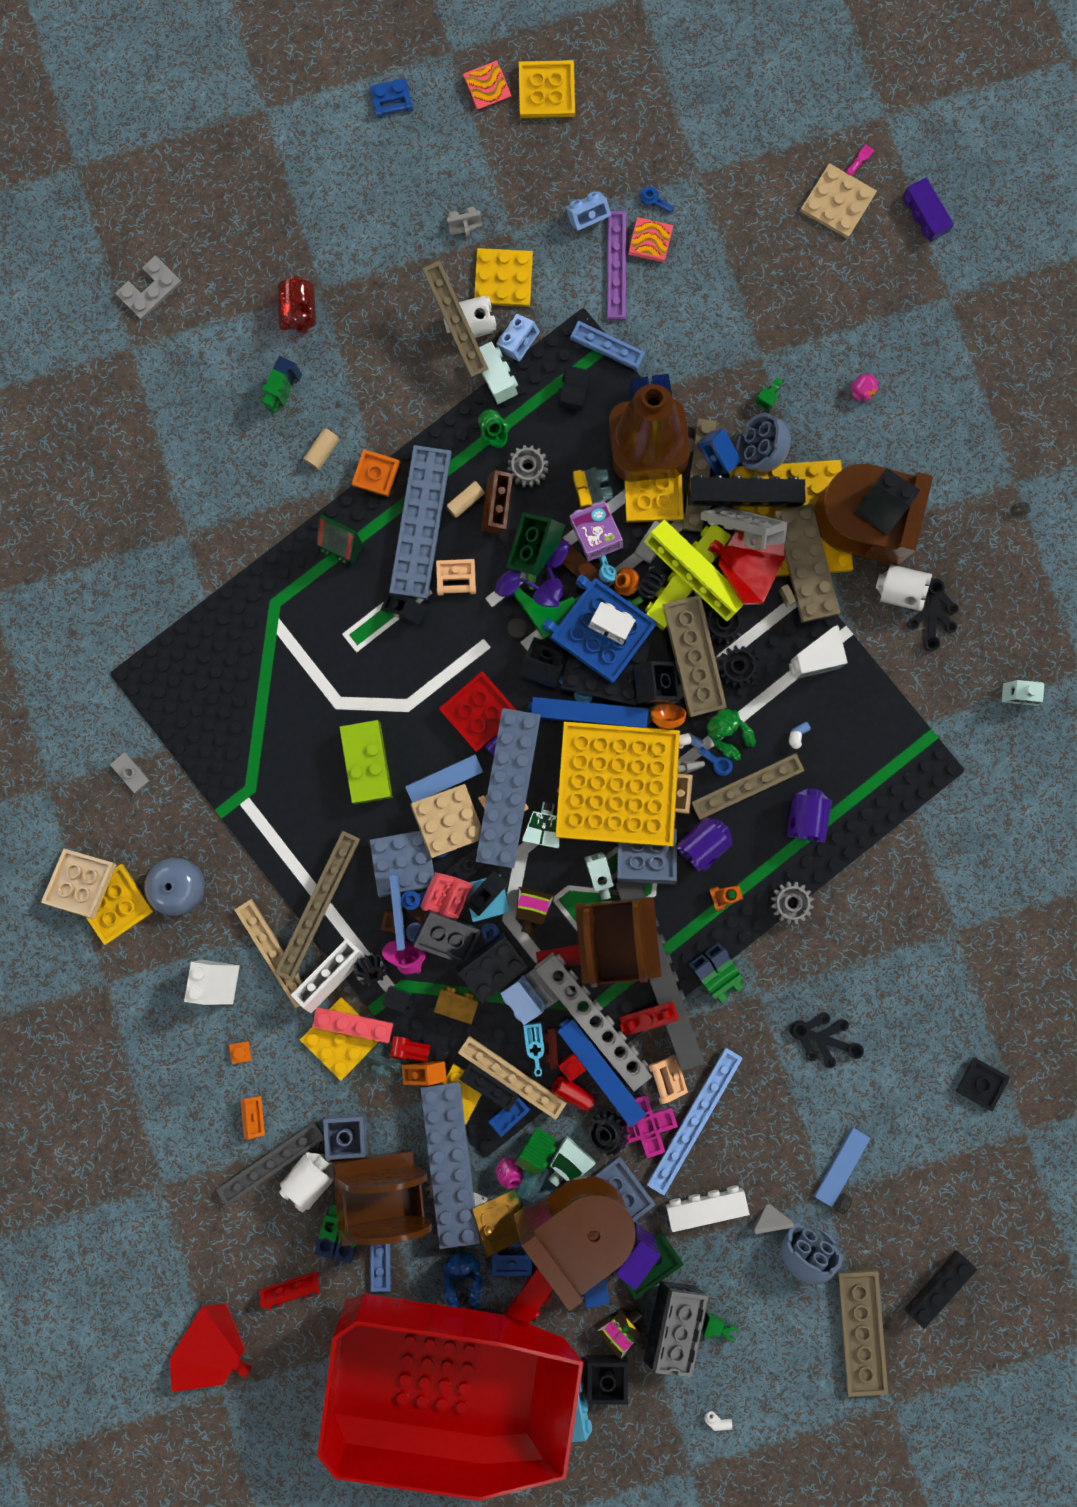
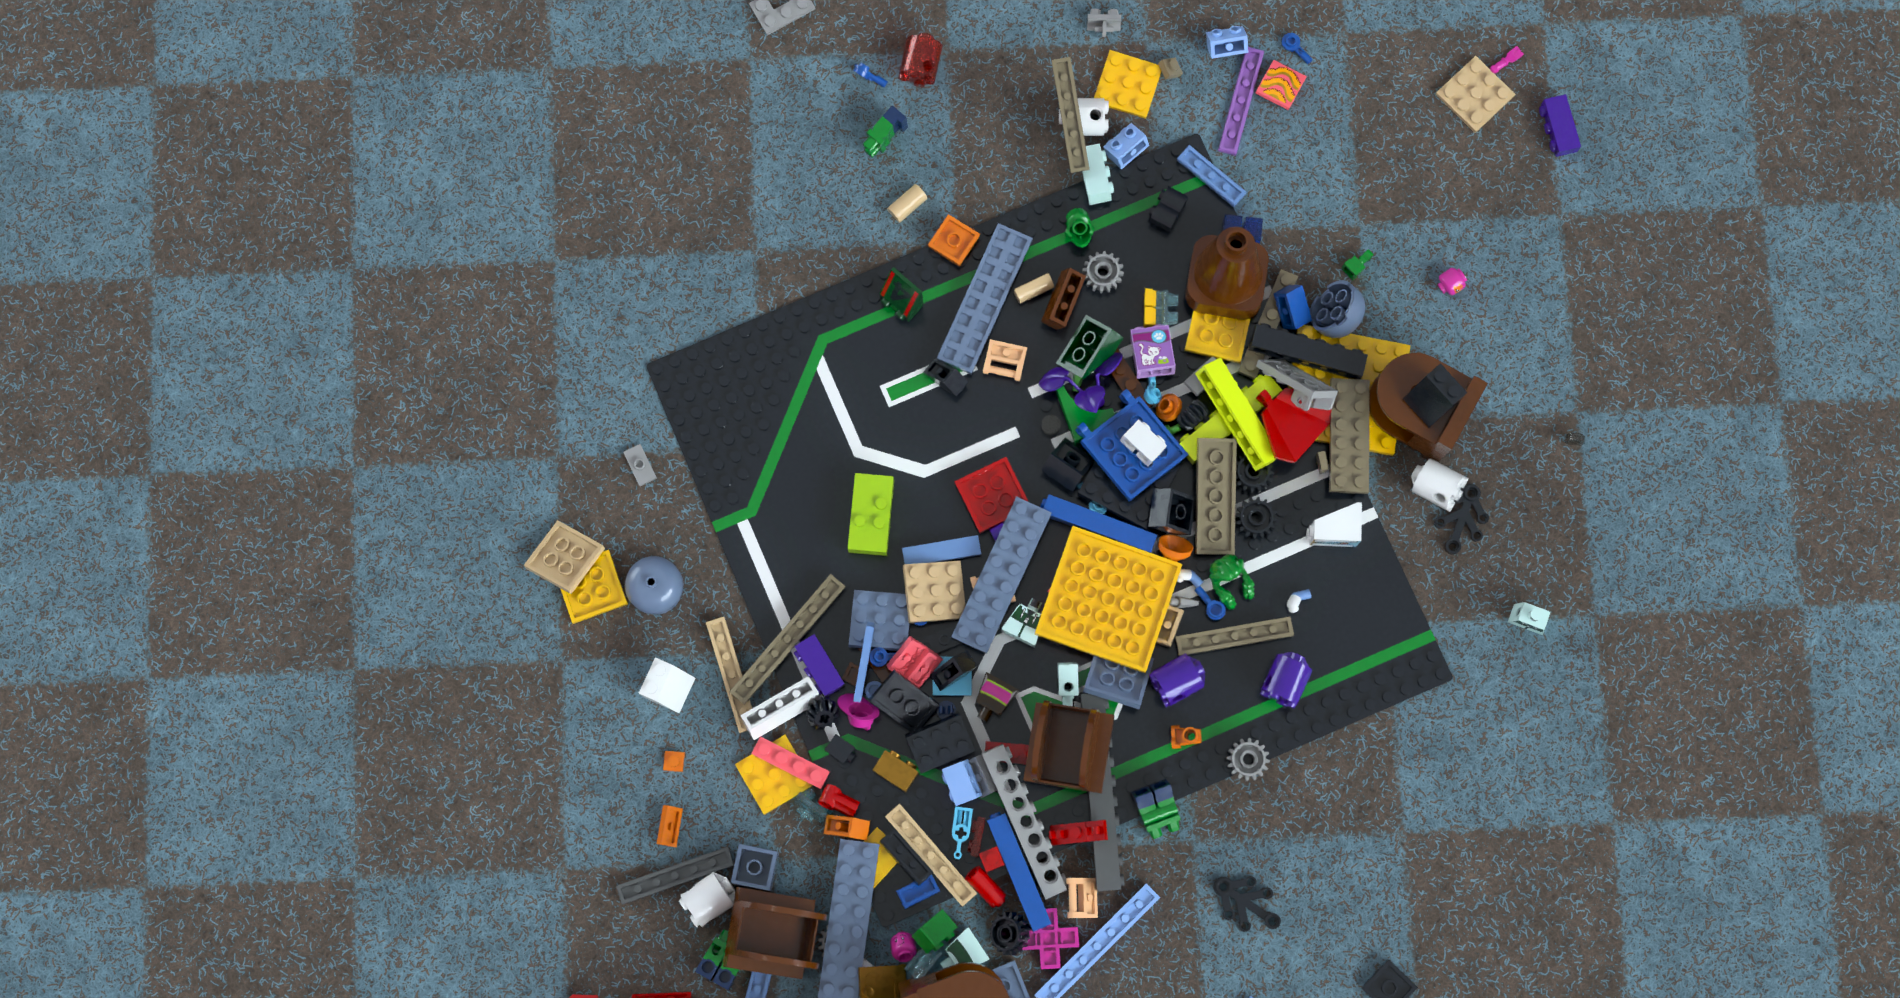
camera: 15 degrees right, 5 degrees down
(243, 330) = (863, 70): none -> blue plate
(355, 924) = (818, 666): none -> dark purple brick
(540, 251) = (1170, 68): none -> dark tan plate

